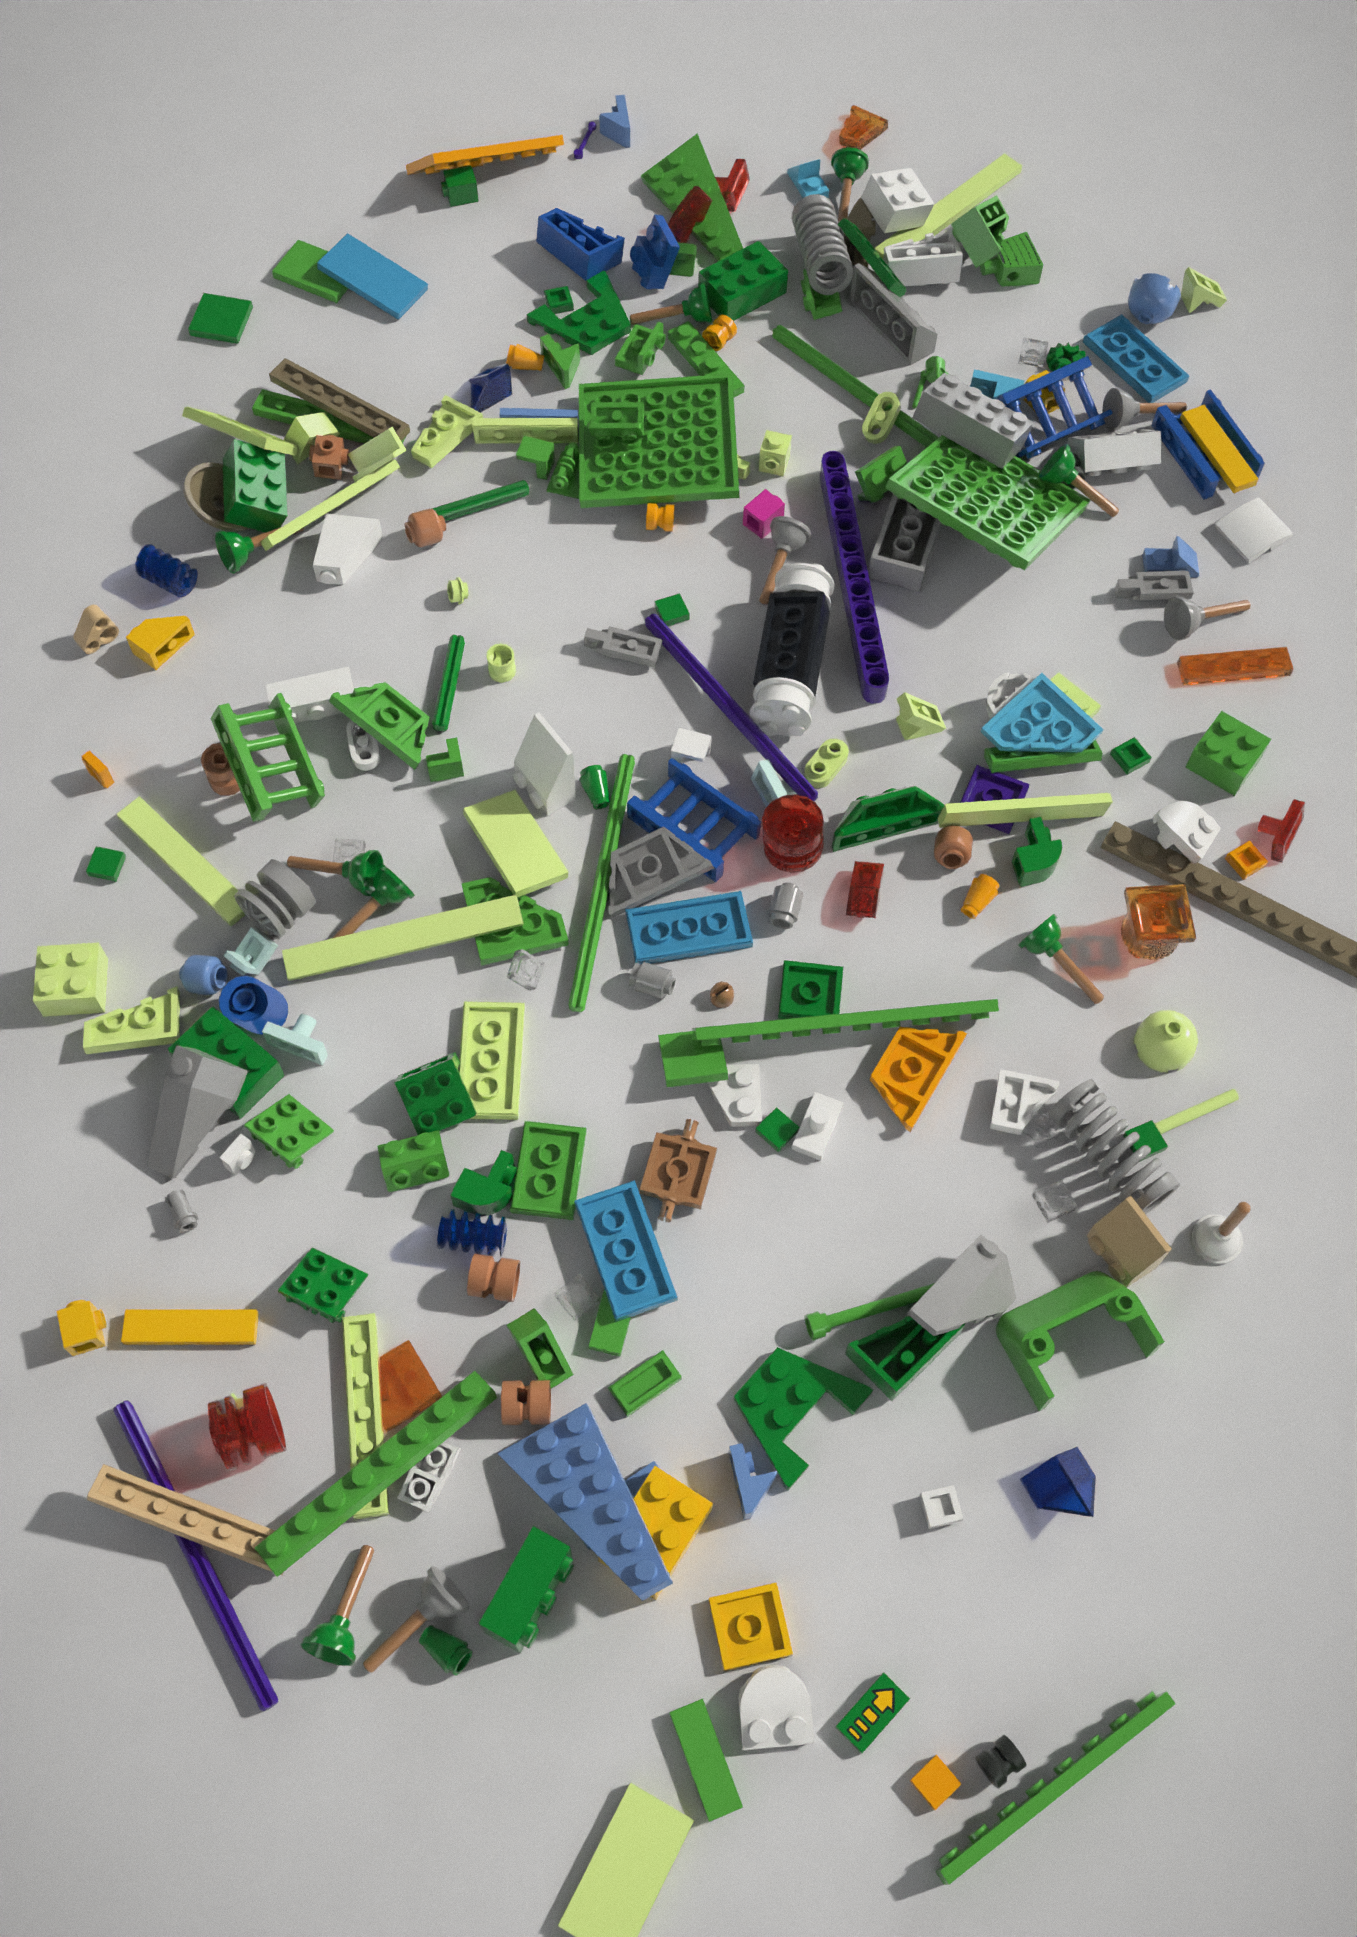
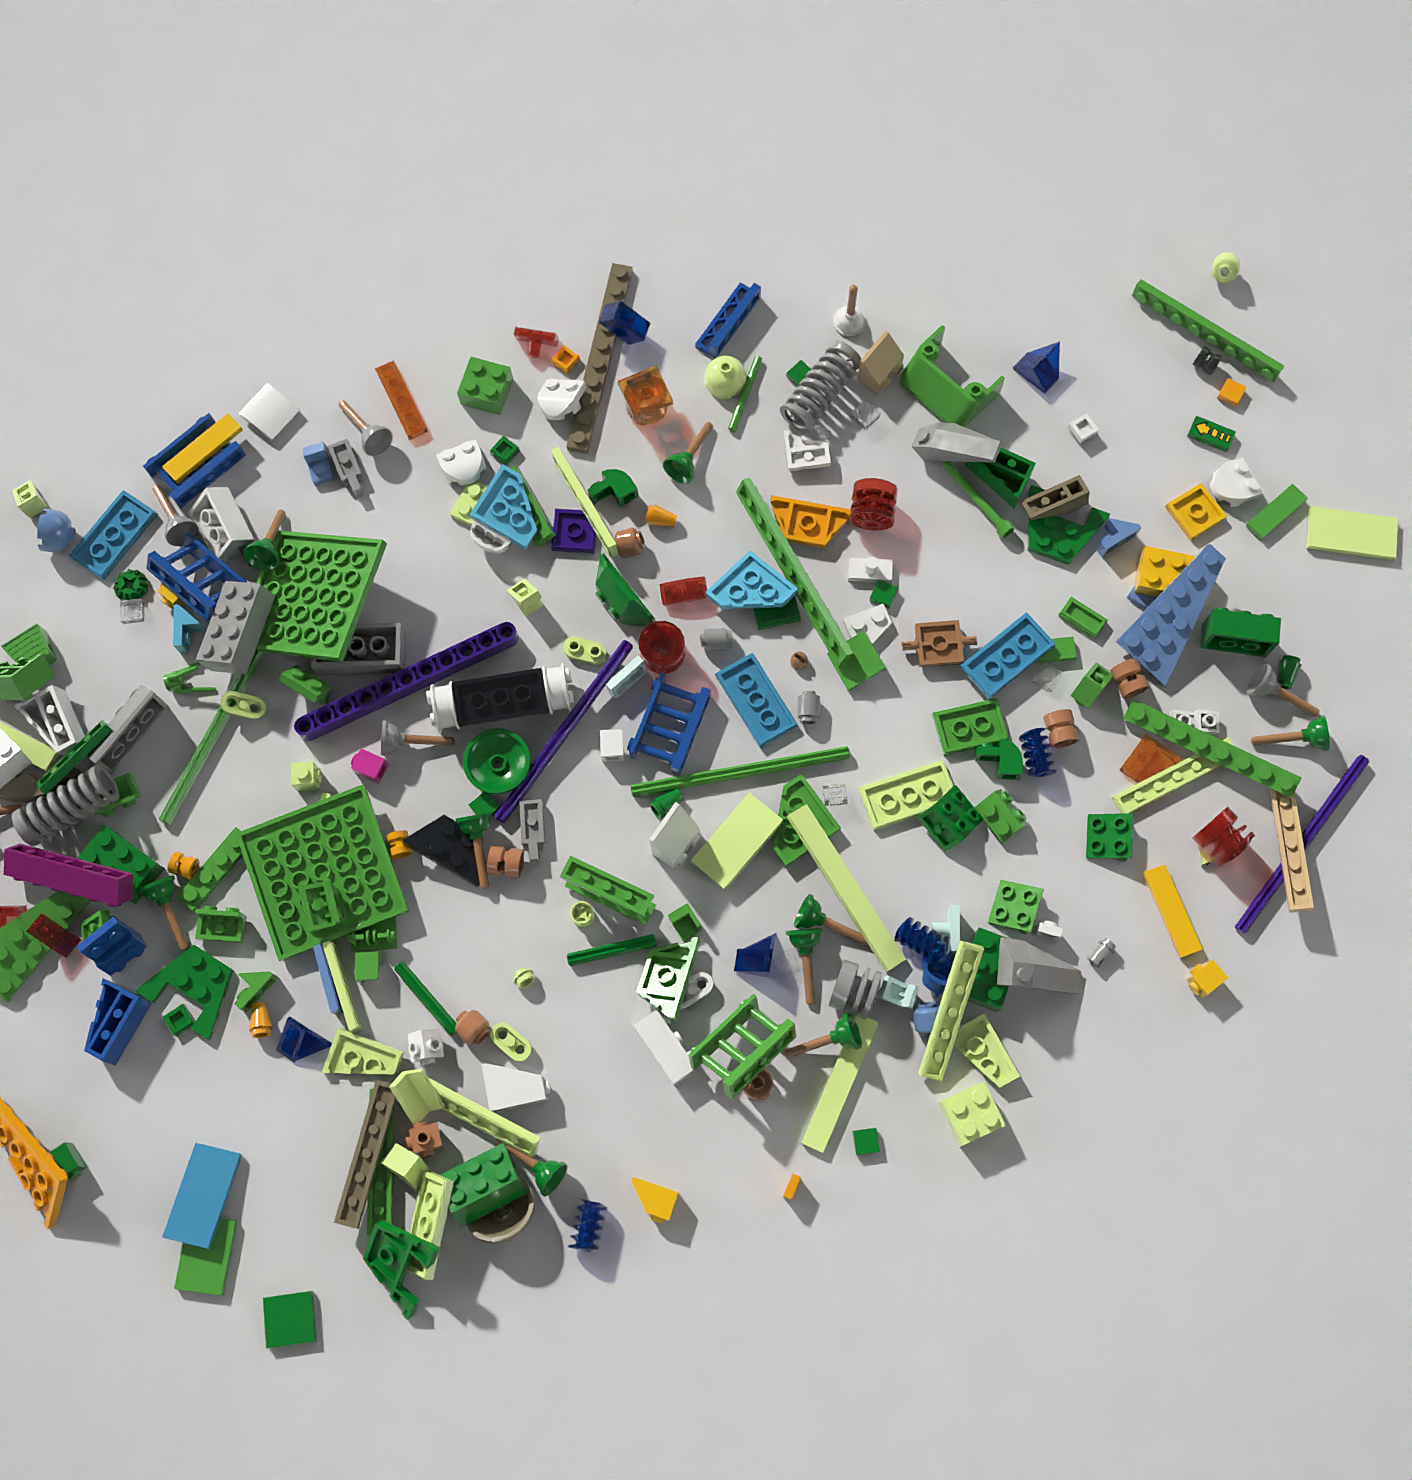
camera: 105 degrees left, 10 degrees up
(94, 629) = (666, 1256): tan piece -> none
(195, 990) = (951, 1010): none -> yellowish green tile
(219, 401) = (390, 1256): none -> green wing
(229, 872) = (845, 1033): none -> green piece
(296, 993) = (920, 940): none -> clear blue piece
(366, 821) = (756, 957): none -> clear blue slope
(392, 560) = (511, 1042): none -> yellowish green plate
(433, 481) = (425, 1046): none -> white brick
(509, 681) = (608, 890): none -> bright green fence
(595, 605) = (504, 861): none -> nougat wheel
(635, 561) = (446, 846): none -> black wing
(648, 582) = (474, 826): none -> piece
(651, 868) = (725, 735): light grey wing -> none
(721, 616) = (494, 747): none -> green dish
(743, 230) = (68, 874): none -> magenta brick
(832, 1407) = (1058, 499): none -> dark tan slope
(842, 963) = (751, 585): none -> medium azure plate
(906, 1149) = (873, 504): none -> clear red wheel
(1124, 702) = (462, 463): none -> white slope
(1135, 1059) = (745, 394): none -> bright green bar
(1165, 1872) = (1225, 267): none -> yellowish green head
(1197, 1111) = (767, 349): yellowish green bar -> none
(1254, 1080) = (732, 322): none -> blue fence
(1278, 930) = (624, 322): none -> clear blue brick

